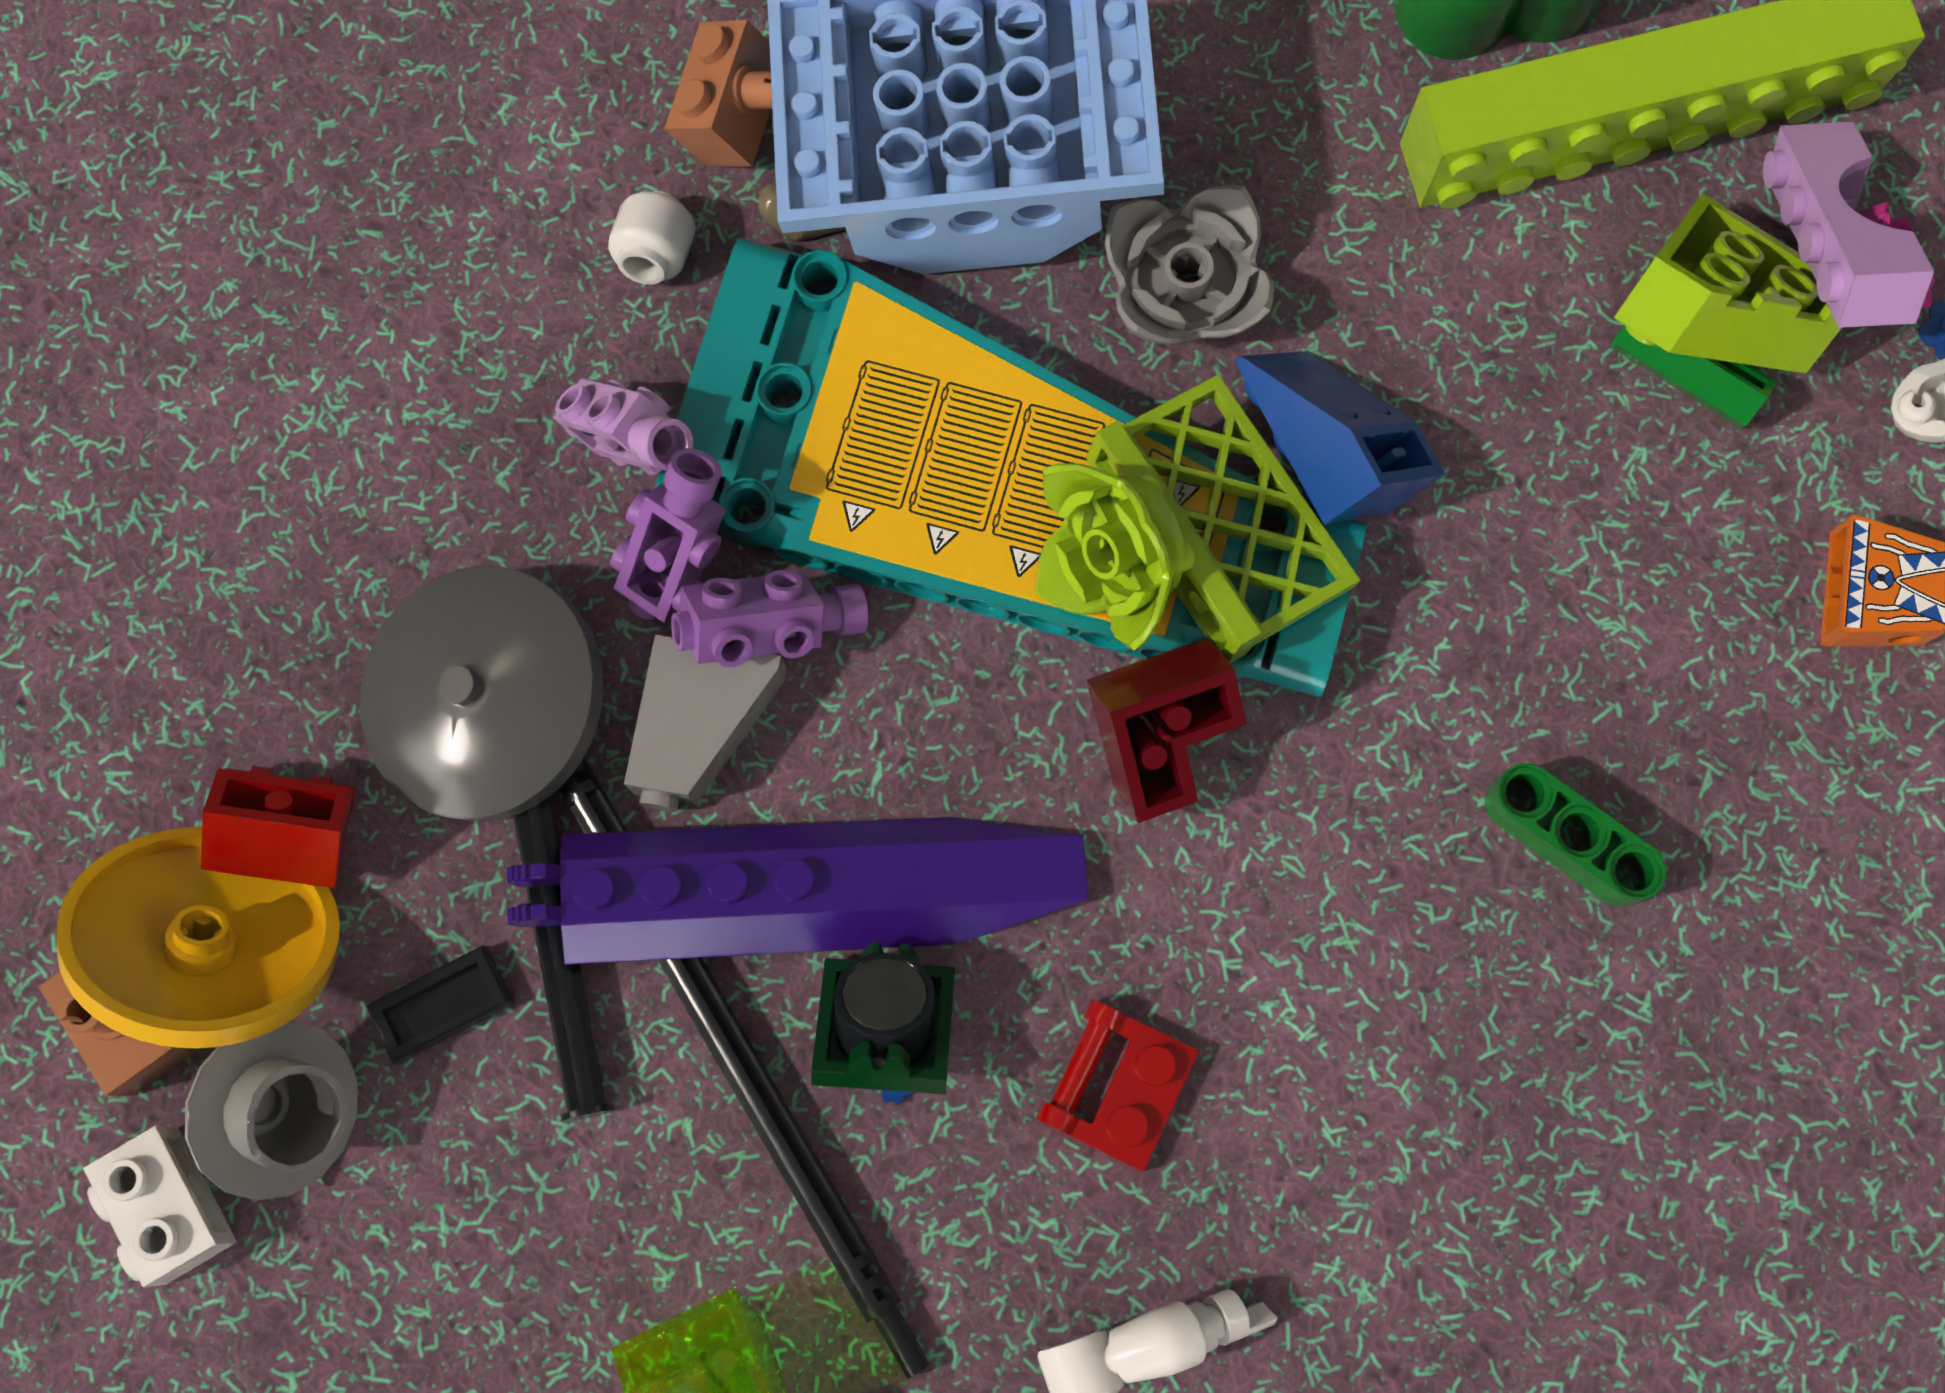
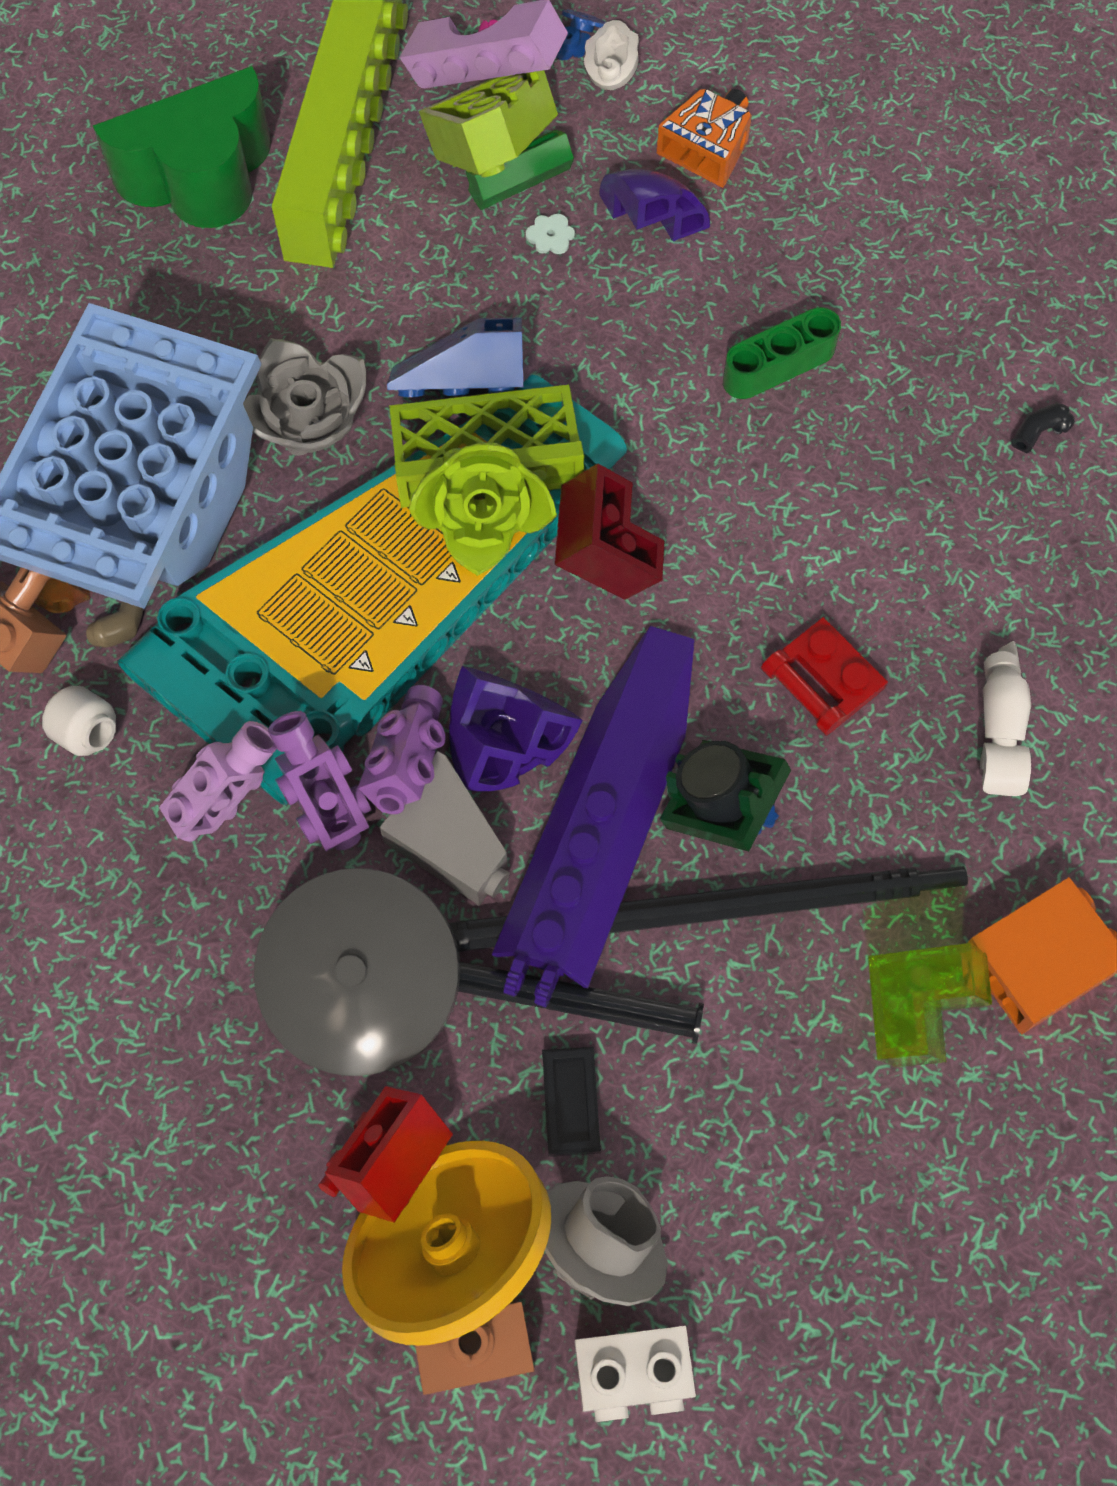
camera: 70 degrees left, 10 degrees down
(856, 720) = (503, 730): none -> dark purple brick
(1631, 452) = (550, 234): none -> light aqua plant
(1666, 1249) = (1052, 416): none -> black arm
(1730, 563) = (654, 198): none -> dark purple brick

